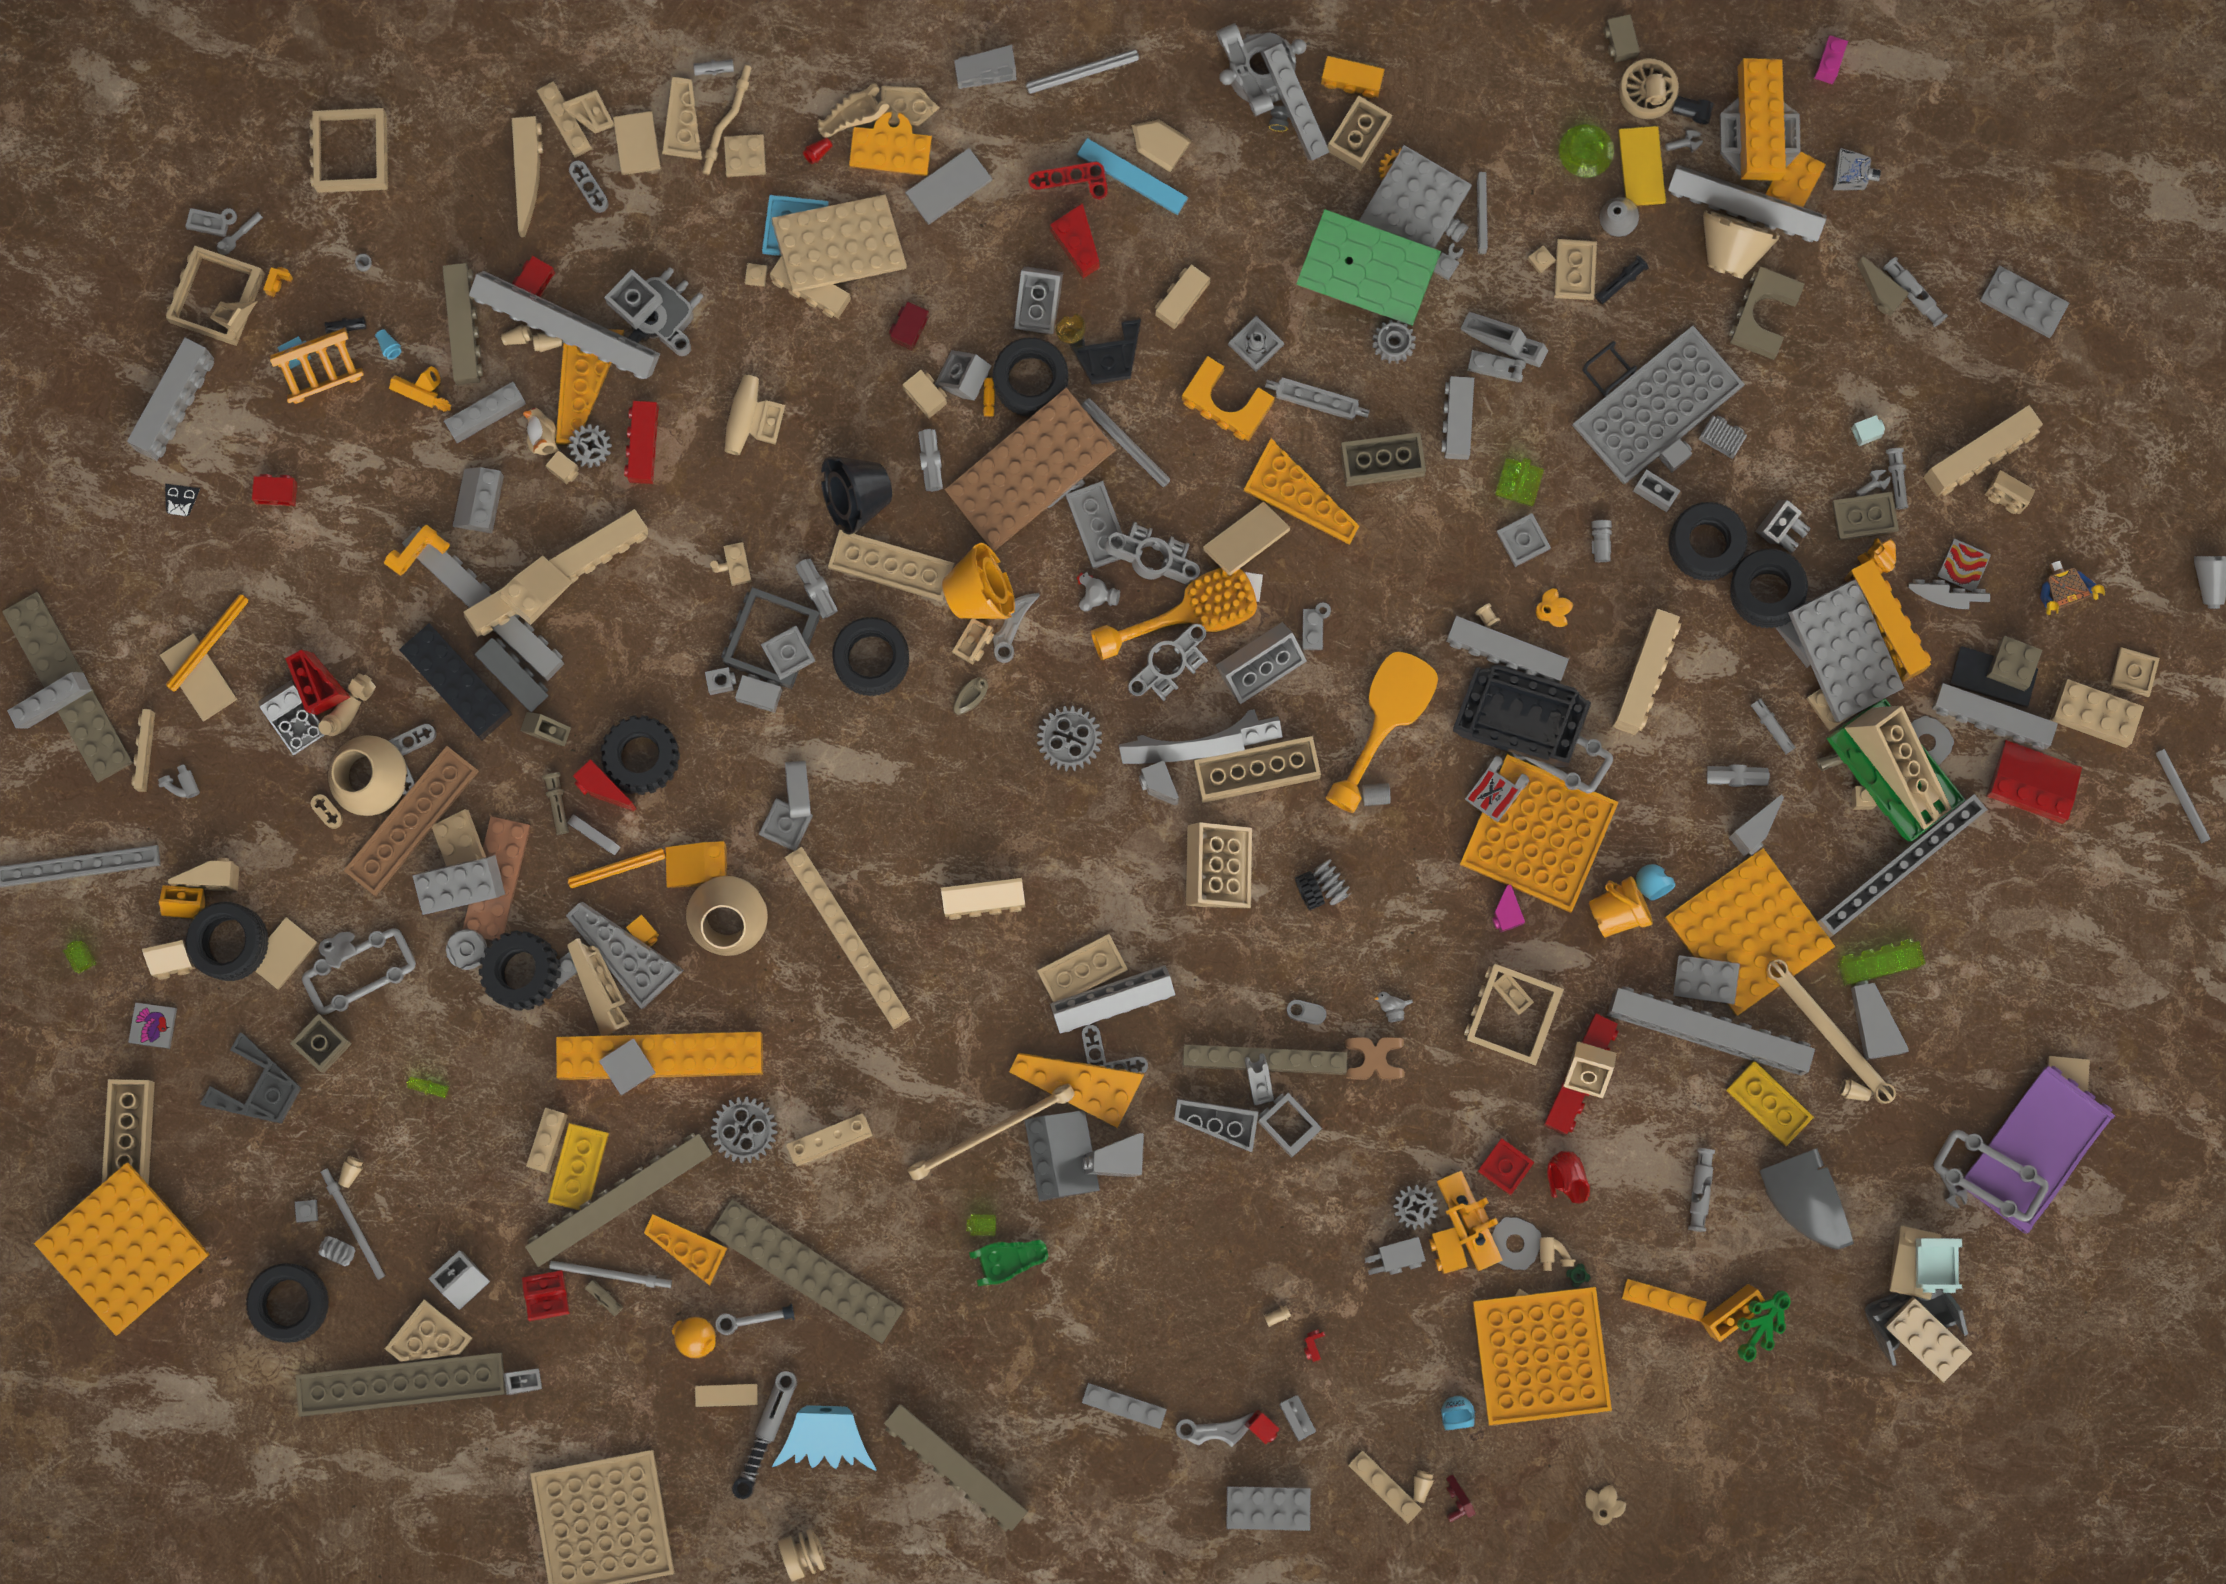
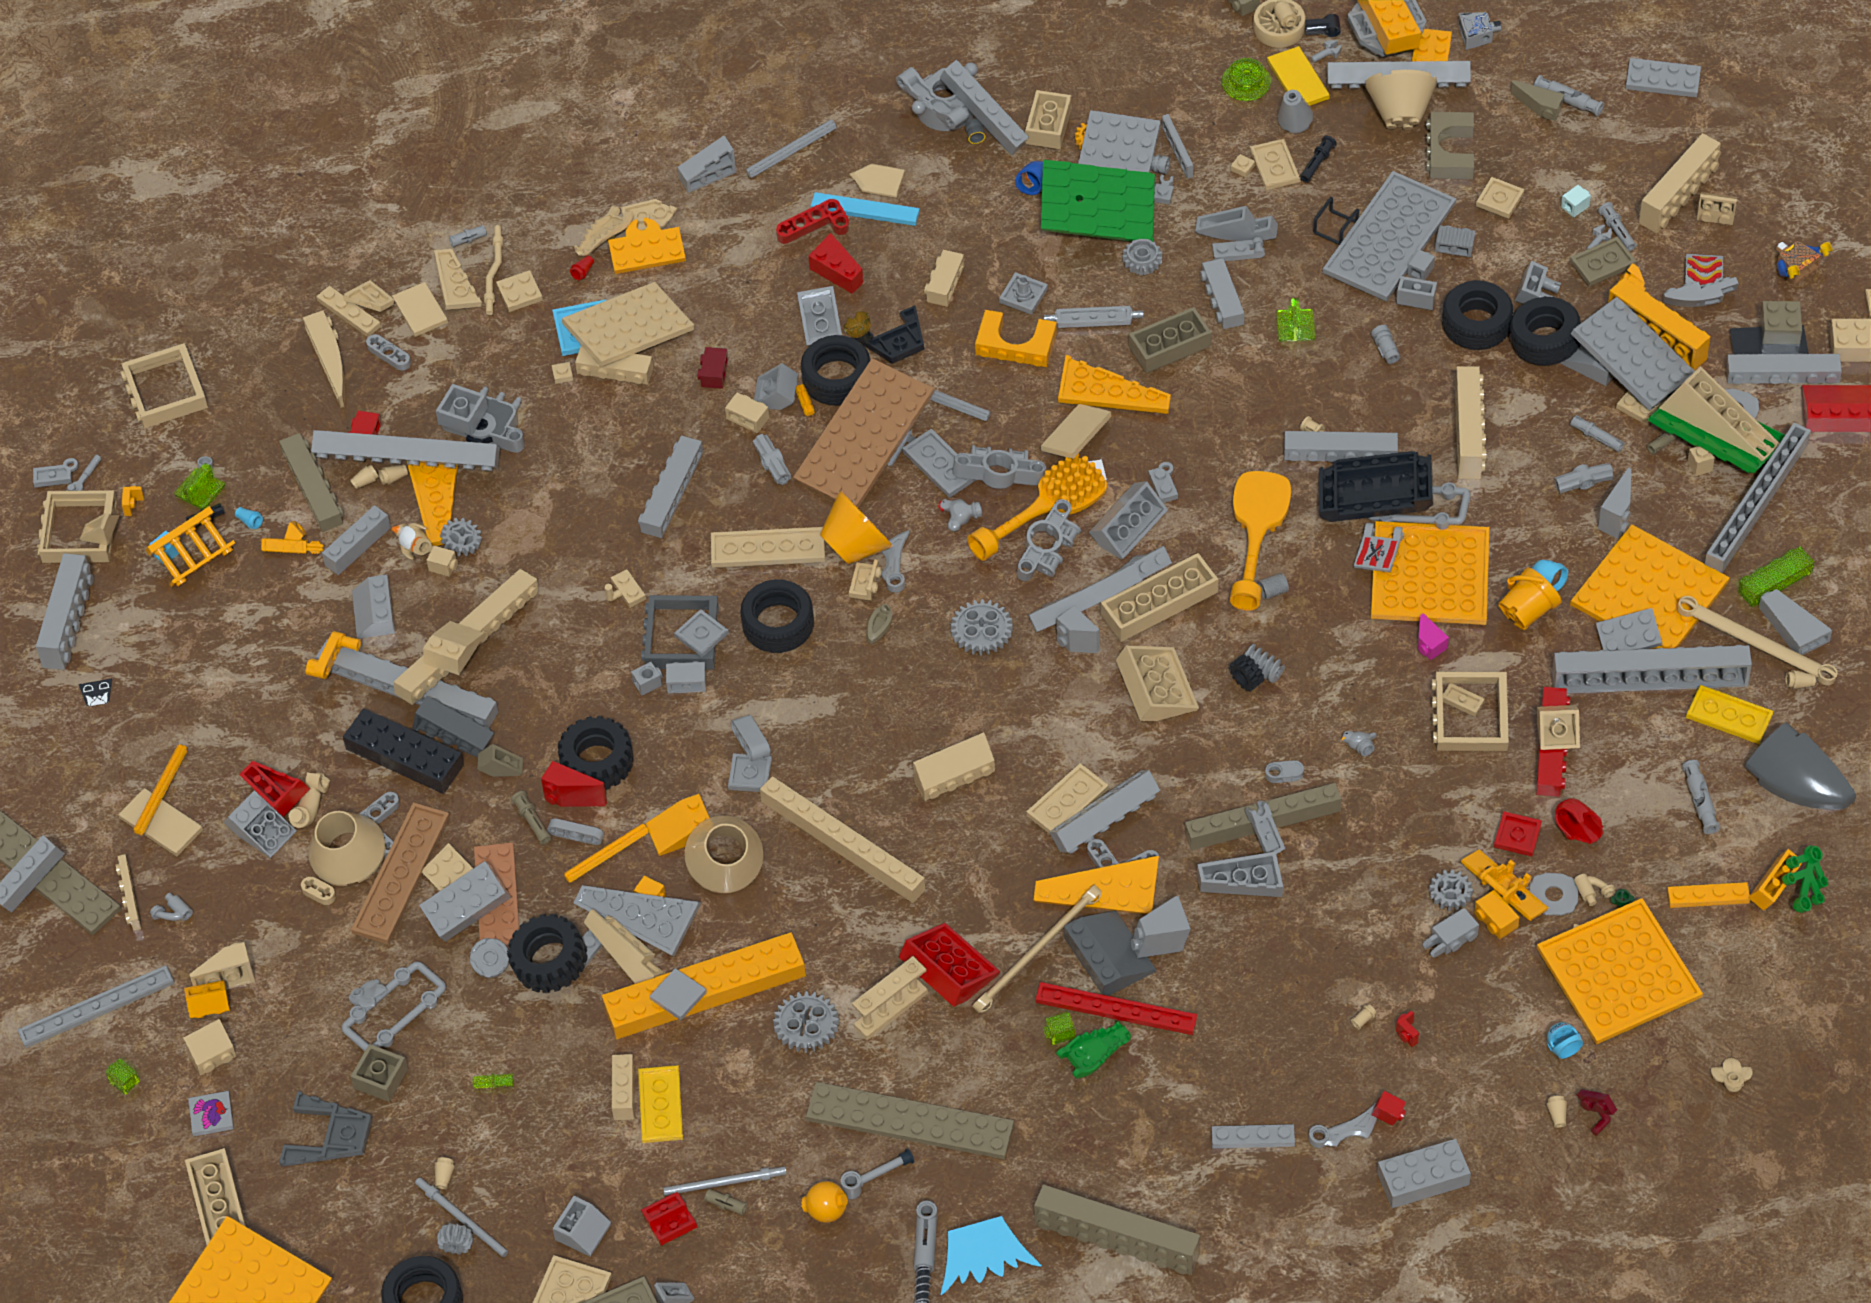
camera: 15 degrees left, 25 degrees down
(202, 928) = (247, 994): black tyre -> none
(274, 490) = (183, 656): red brick -> none
(285, 953) = (315, 1017): tan tile -> none
(306, 1211) = (412, 1221): light grey plate -> none
(349, 290) = (200, 487): none -> clear neon green bracket
(618, 1200) = (709, 1114): dark tan brick -> none
(642, 442) = (507, 520): red brick -> none
(690, 1249) = (793, 1135): light orange wing -> none
(726, 1395) = (874, 1246): tan tile -> none
(751, 417) = (595, 474): tan plate -> none
(807, 471) = (671, 486): none -> light grey brick
(816, 588) = (707, 582): light grey piece -> none
(854, 491) = (711, 493): black cone -> none
(902, 1114) = (950, 963): none -> red slope
(948, 186) = (707, 261): light grey tile -> none
(1045, 1221) = (1116, 1008): none -> red plate
(1297, 1418) = (1416, 1092): light grey bracket -> none
(1299, 1144) = (1303, 875): light grey window -> none
(1323, 197) = (1034, 174): none -> blue piece
(1352, 77) = (1023, 84): light orange brick -> none
(1374, 1058) = (1362, 786): medium nougat piece -> none
(1385, 1487) = (1524, 1125): tan plate -> none
(1523, 540) = (1318, 364): light grey plate -> none
(1556, 607) = (1367, 406): light orange plate -> none
(1791, 397) = (1500, 197): none -> tan plate

